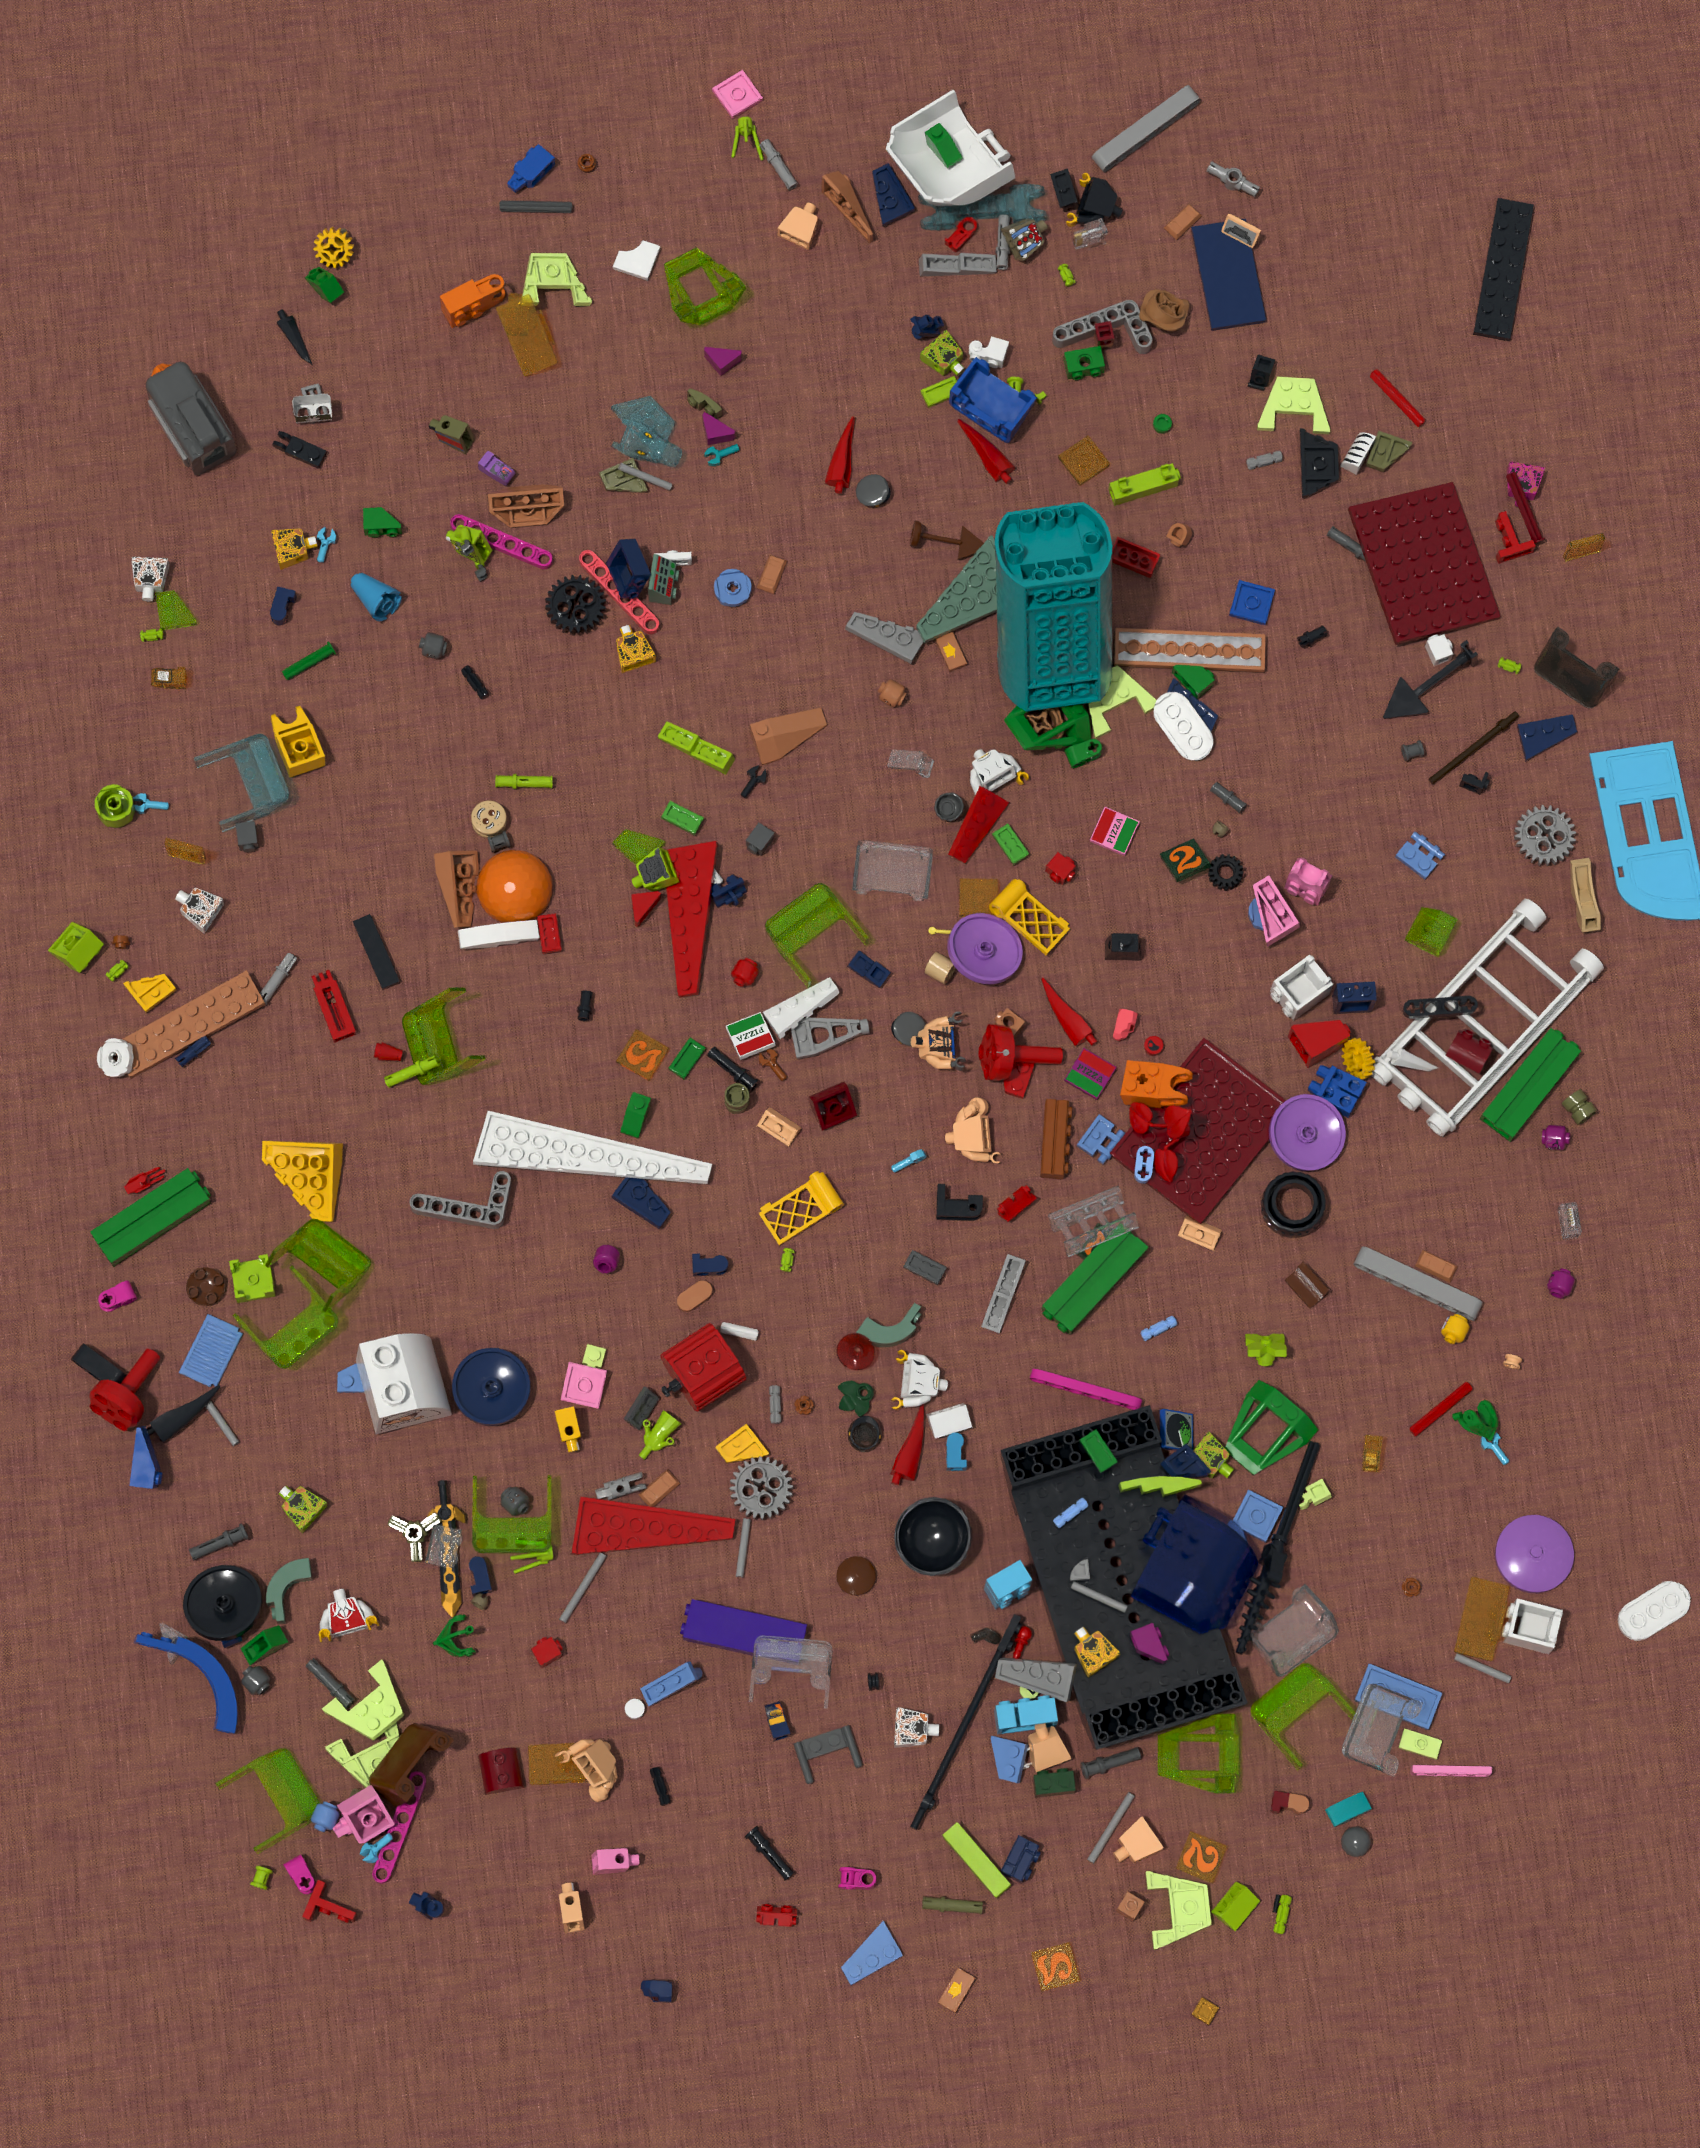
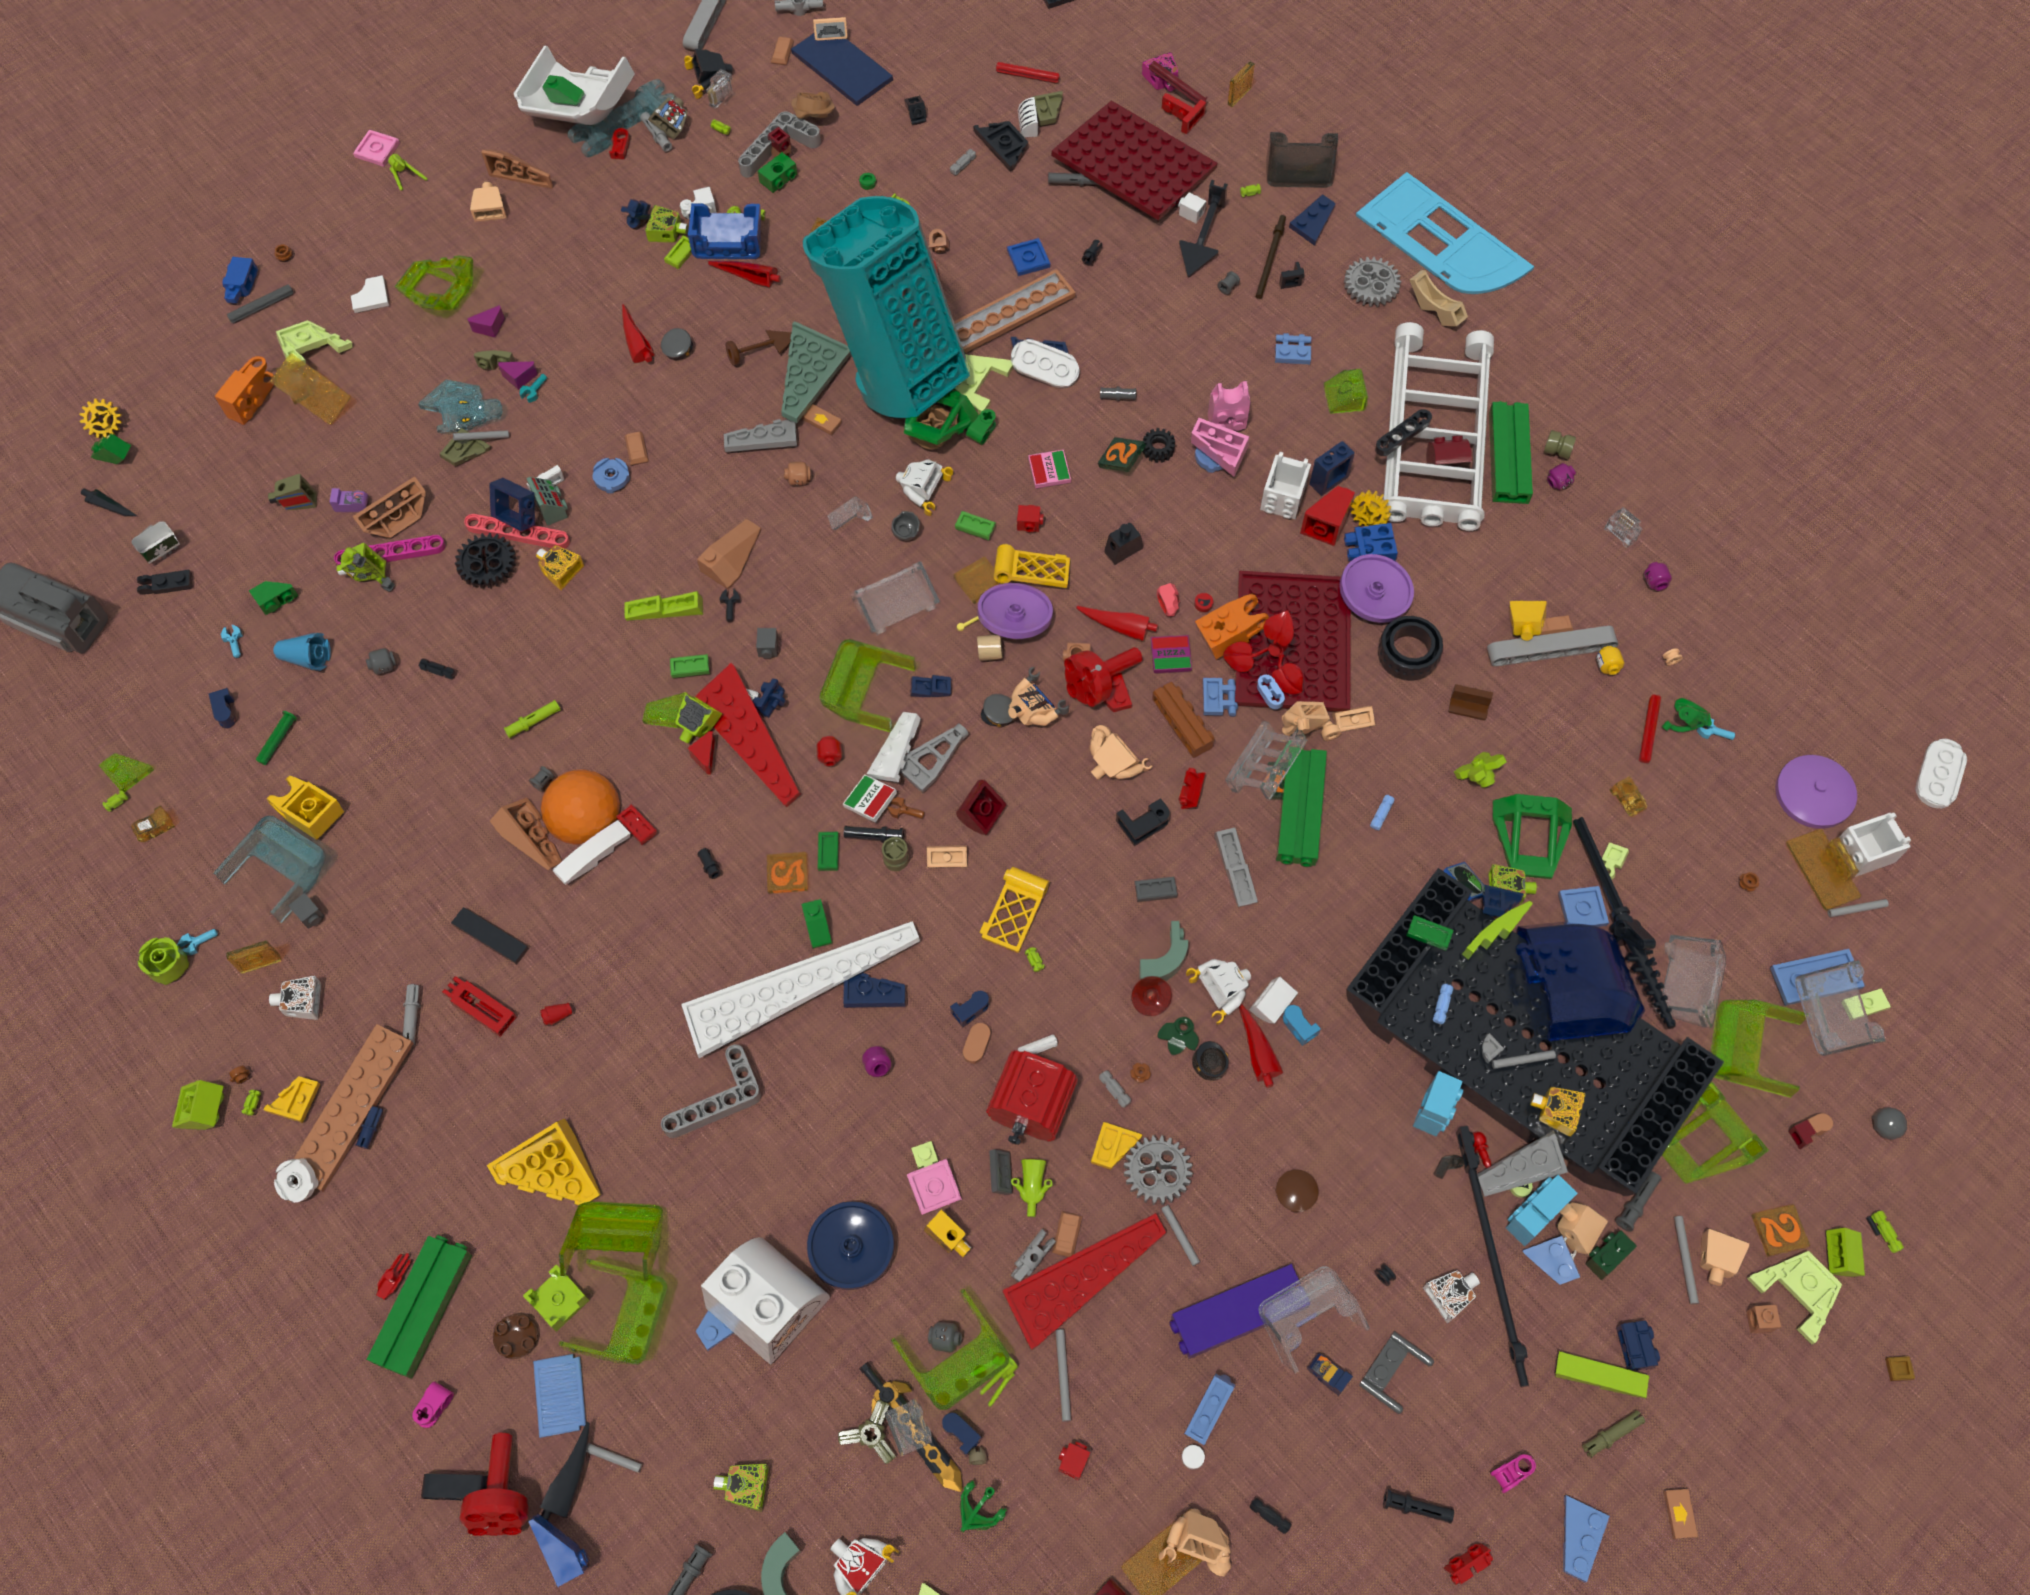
camera: 30 degrees left, 10 degrees down
(149, 575) = (84, 753): torso -> none
(291, 546) = (203, 657): torso -> none
(420, 1067) = (594, 1005): lime pin -> none
(430, 1035) = (589, 977): clear neon green windscreen -> none
(488, 819) = (520, 766): tan head -> none
(774, 158) = (435, 171): light grey pin -> none
(891, 196) = (545, 147): dark blue wing -> none
(914, 1157) = (1080, 805): medium azure bar -> none
(933, 1536) = (1343, 1106): black piece -> none
(956, 265) = (635, 162): light grey slope -> none
(978, 821) = (937, 522): red wing -> none
(1055, 1967) = (1744, 1425): clear yellow tile -> none
(1064, 190) = (679, 73): black hinge -> none
(1085, 1389) = (1364, 899): dark pink beam -> none
(1147, 1643) = (1598, 1069): magenta slope -> none
(1154, 1208) = (1309, 717): none -> light nougat torso
(1194, 678) = (1025, 327): green slope -> none
(1221, 828) = (1129, 417): dark tan hinge -> none
(1294, 397) = (955, 111): yellowish green wing -> none
(1348, 1809) = (1861, 1099): teal slope -> none
(1406, 1059) = (1408, 487): white bar -> none
(1413, 1246) = (1527, 618): none -> yellow torso
(1462, 1771) = (1913, 1006): bright pink tile -> none

